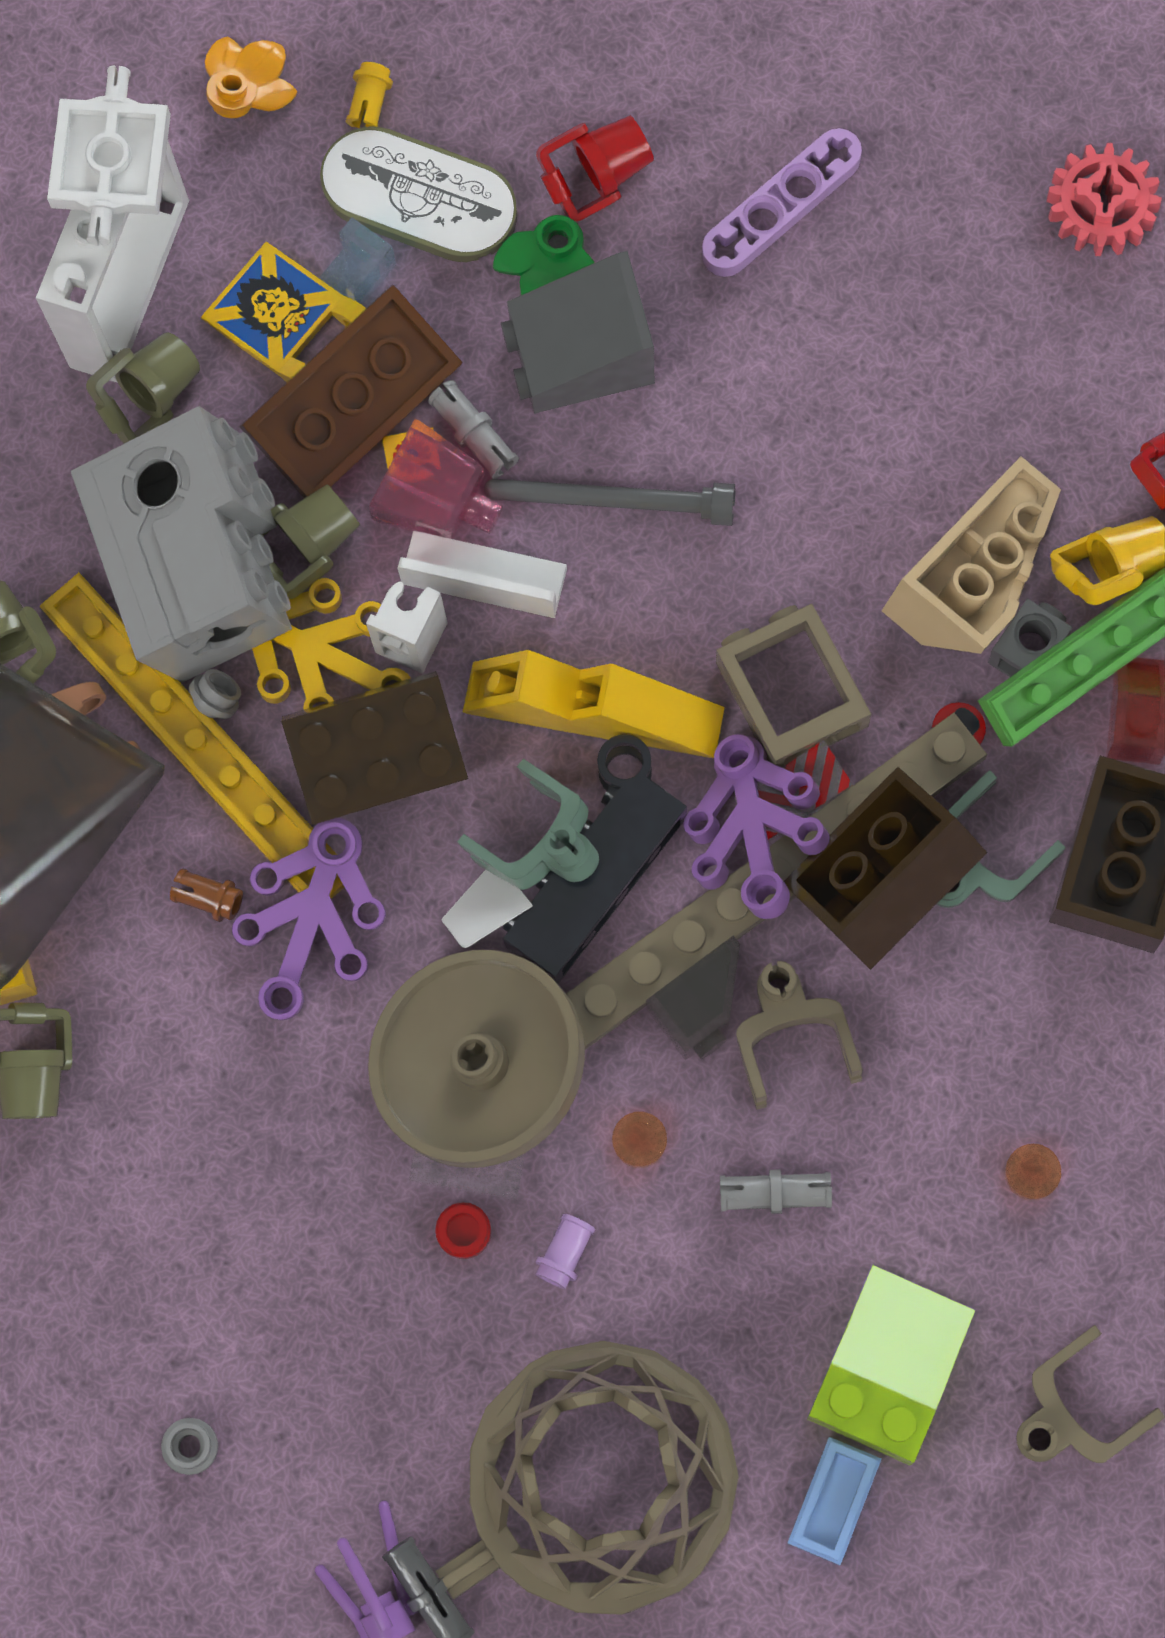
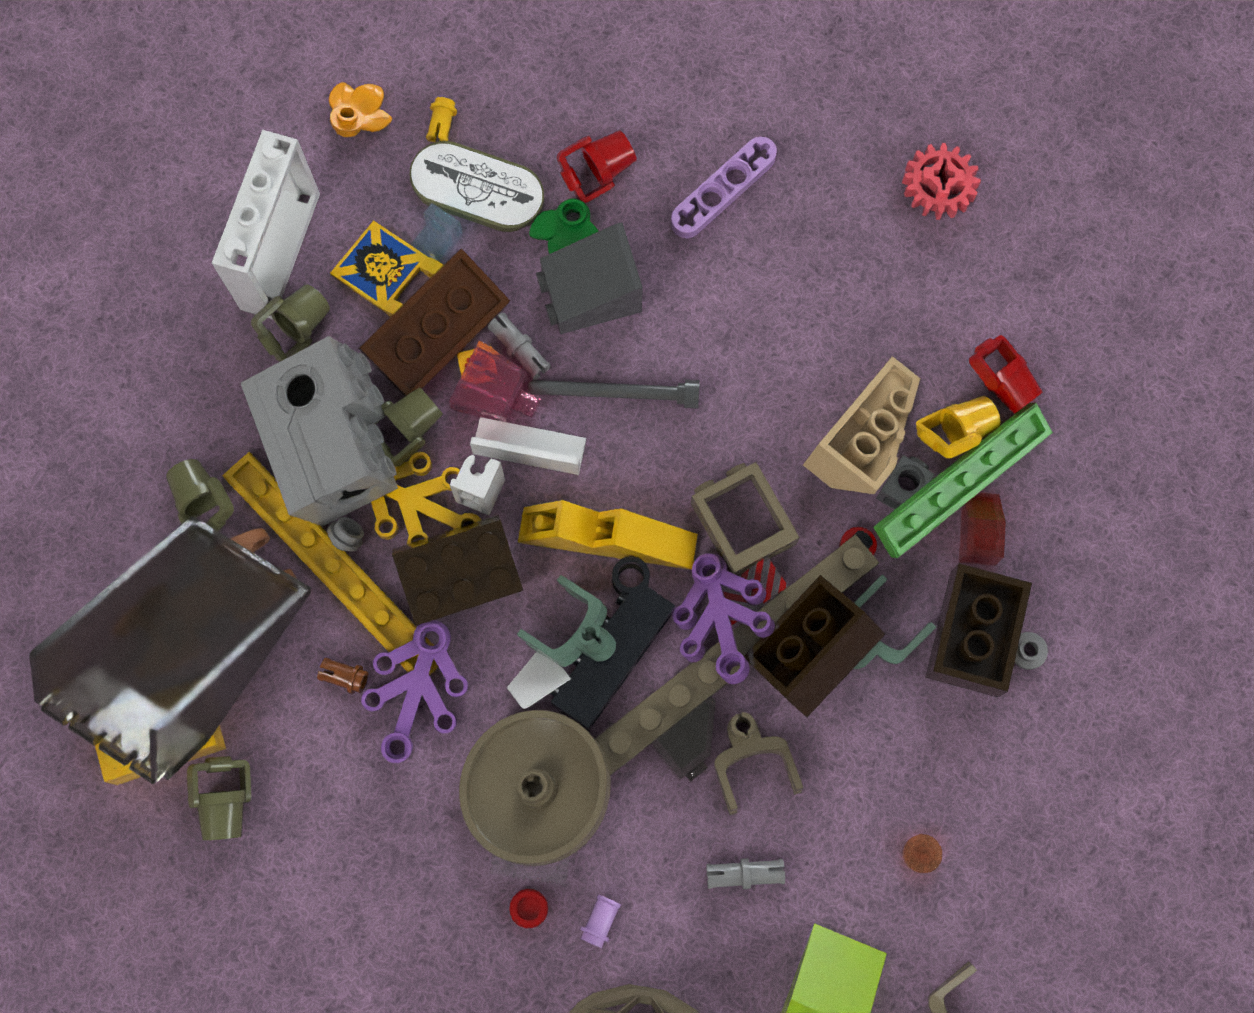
camera: 10 degrees left, 0 degrees up
(109, 156) = (260, 163): white plate -> none
(639, 1139) = (649, 839): clear orange tile -> none

